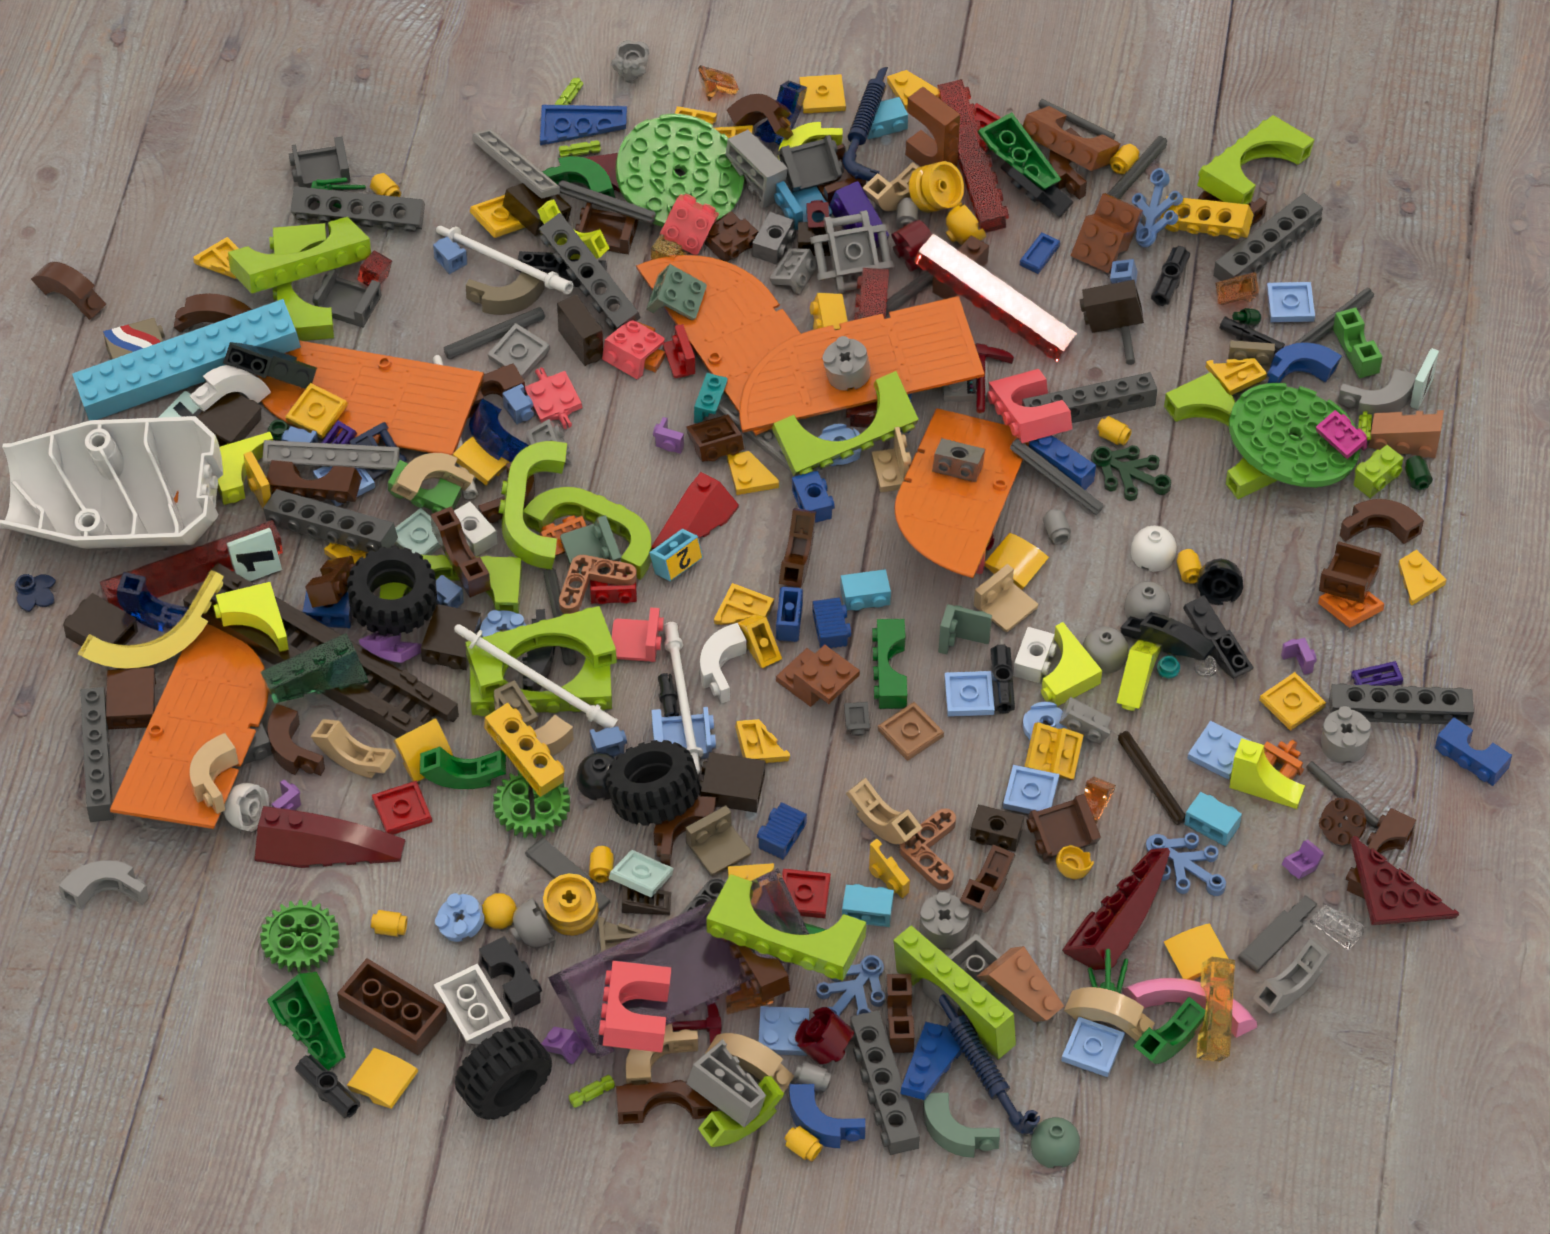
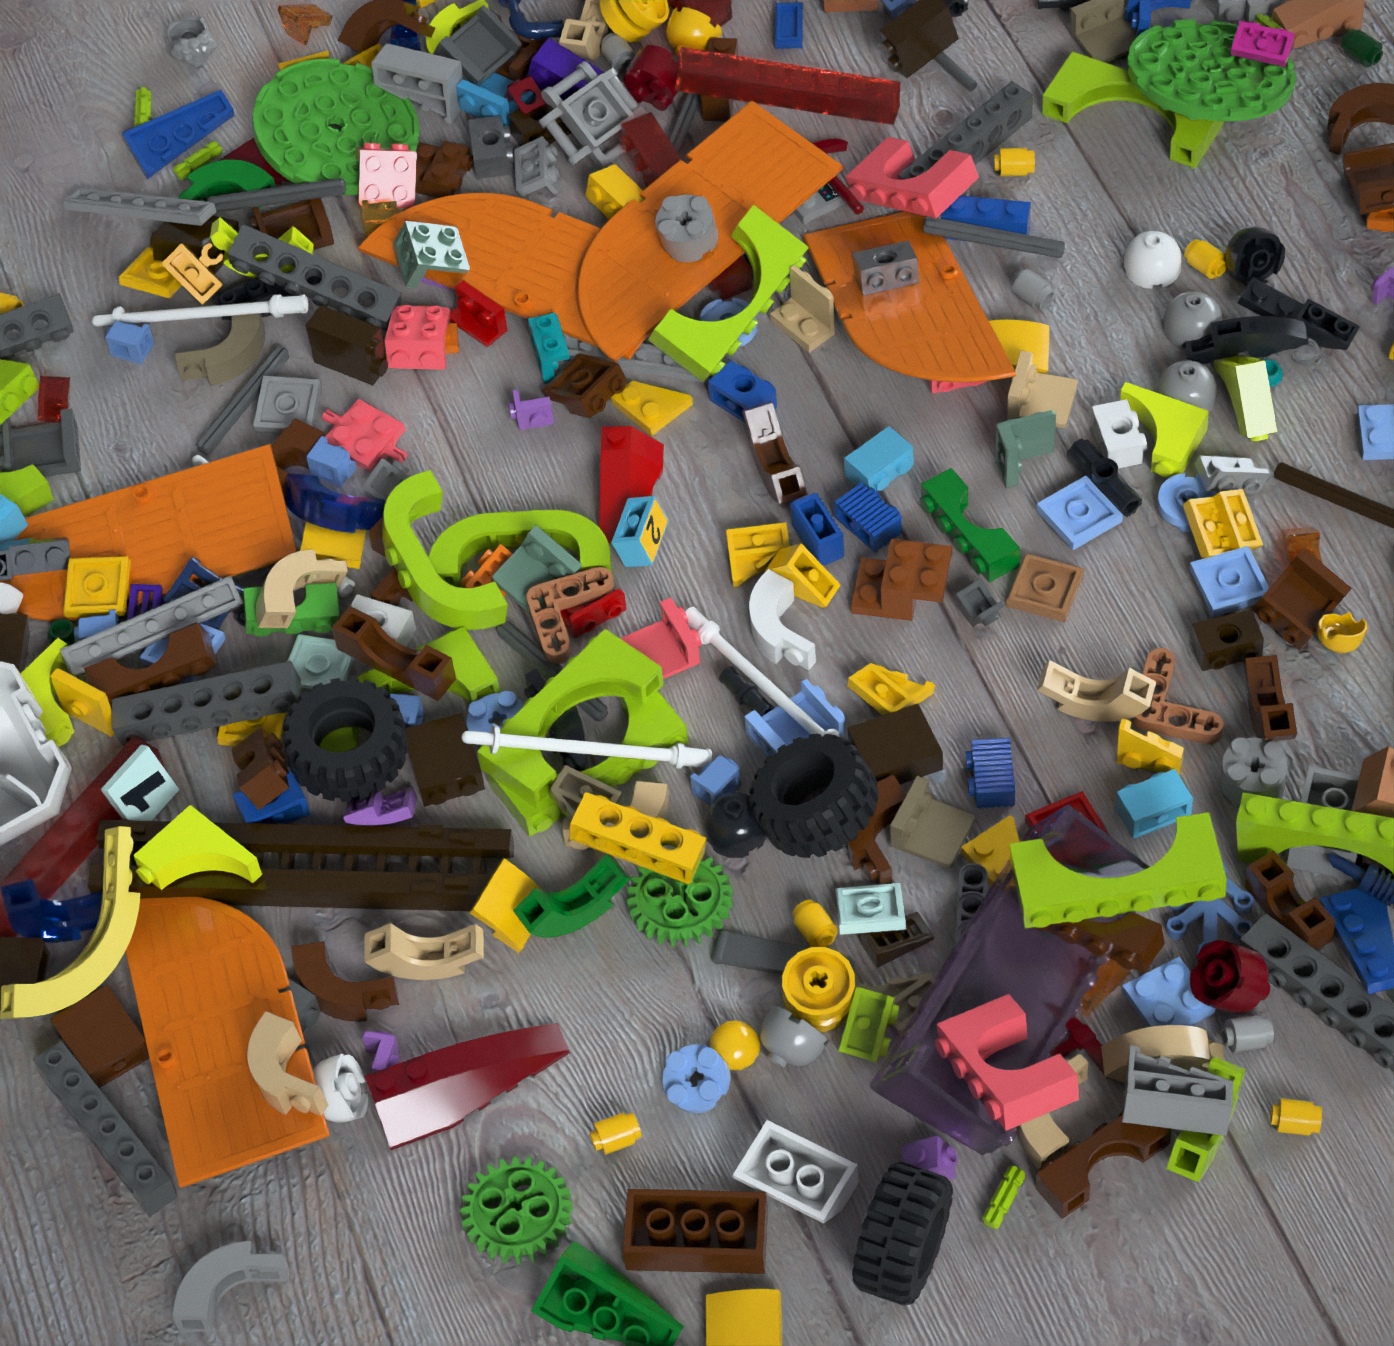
camera: 25 degrees left, 0 degrees up
(315, 670) = (319, 879): clear green wedge -> none
(401, 808) = (526, 989): red tile -> none
(502, 959) = (784, 1098): black arch -> none
(517, 228) = (194, 271): none -> brick
(585, 941) = (868, 1025): none -> lime bracket
(825, 1128) = (1273, 1079): blue arch -> none
(1129, 469) = (1059, 194): dark green plant -> none
(1237, 374) = (1100, 40): yellow wing -> none
(1378, 471) = (1321, 68): lime brick -> none

